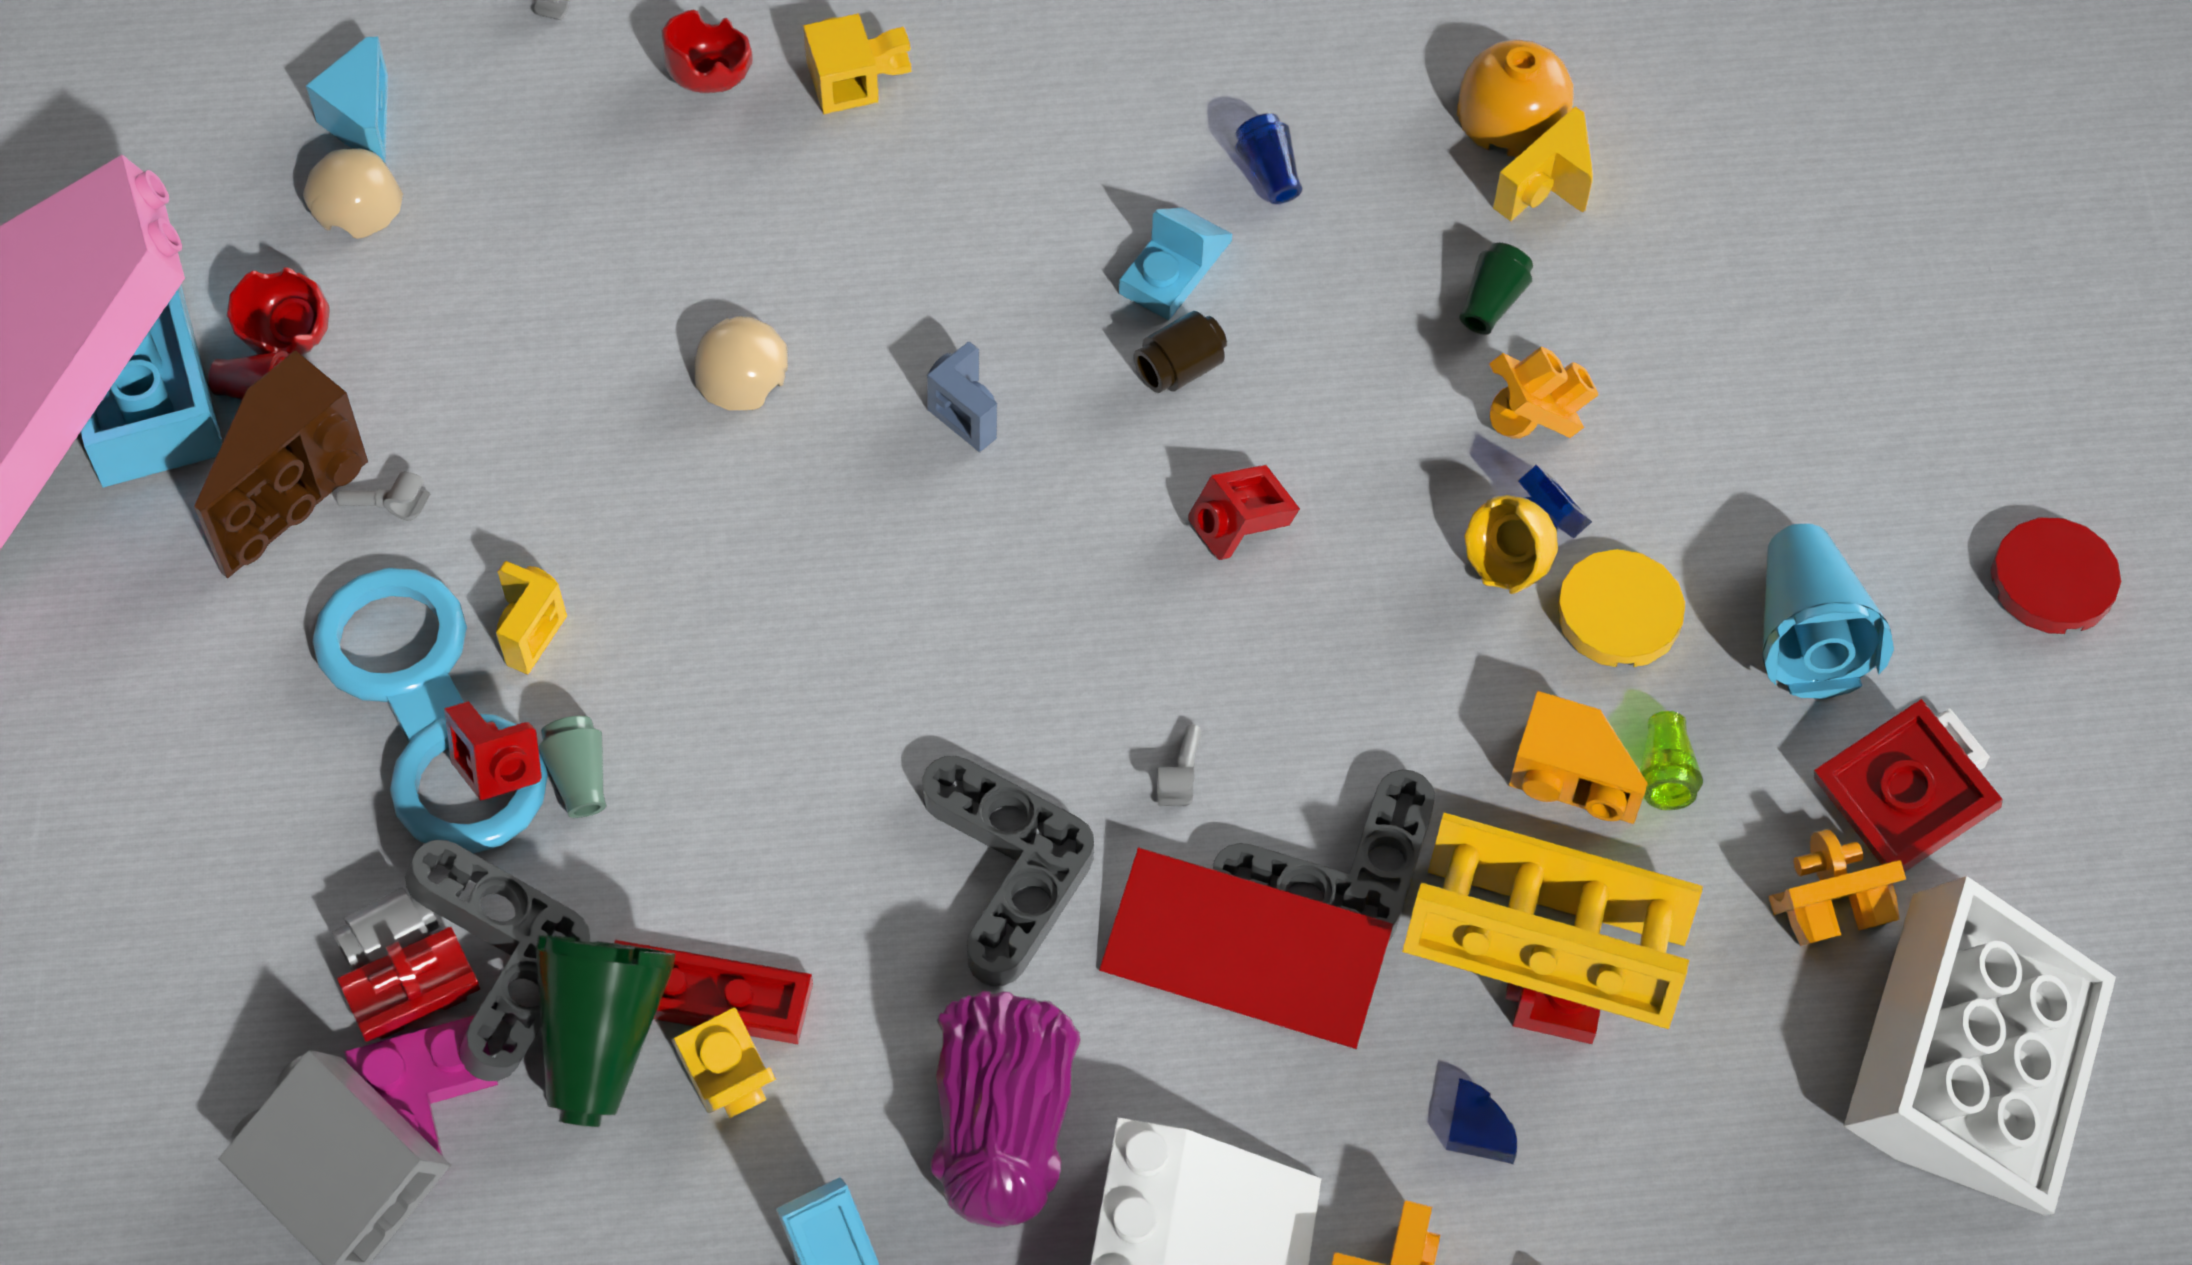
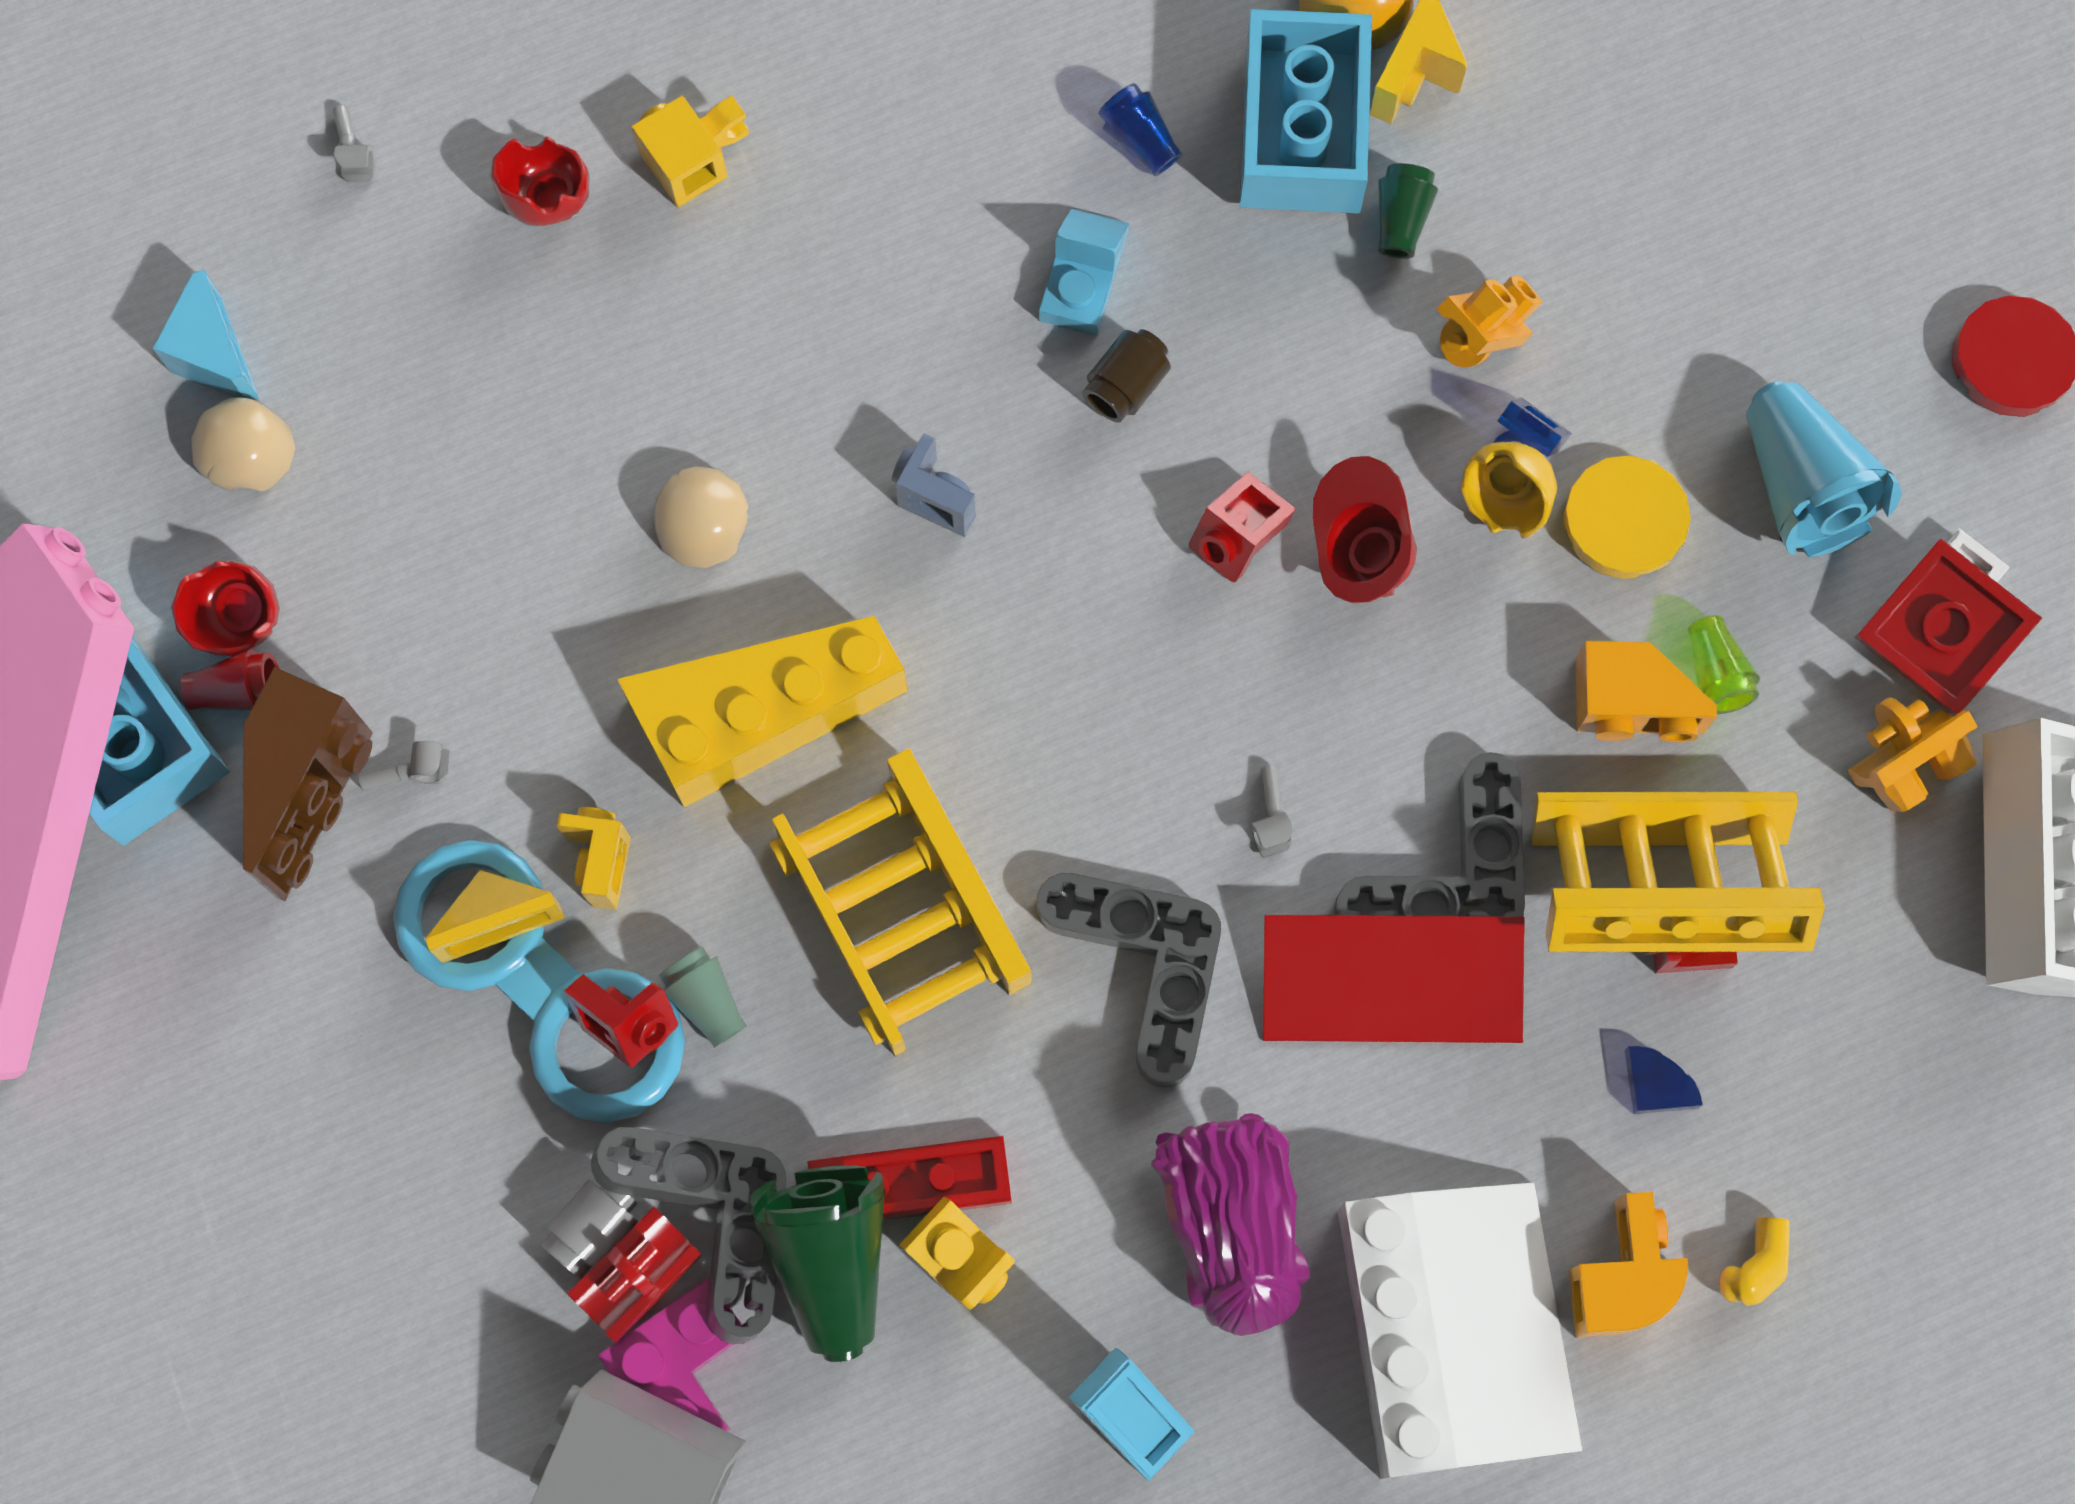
camera: 15 degrees left, 15 degrees up
(405, 633) = (490, 913): none -> yellow slope
(732, 527) = (759, 702): none -> yellow wedge
(853, 756) = (933, 849): none -> yellow fence
(1356, 540) = (1362, 530): none -> red piece
(1427, 178) = (1306, 111): none -> medium azure brick

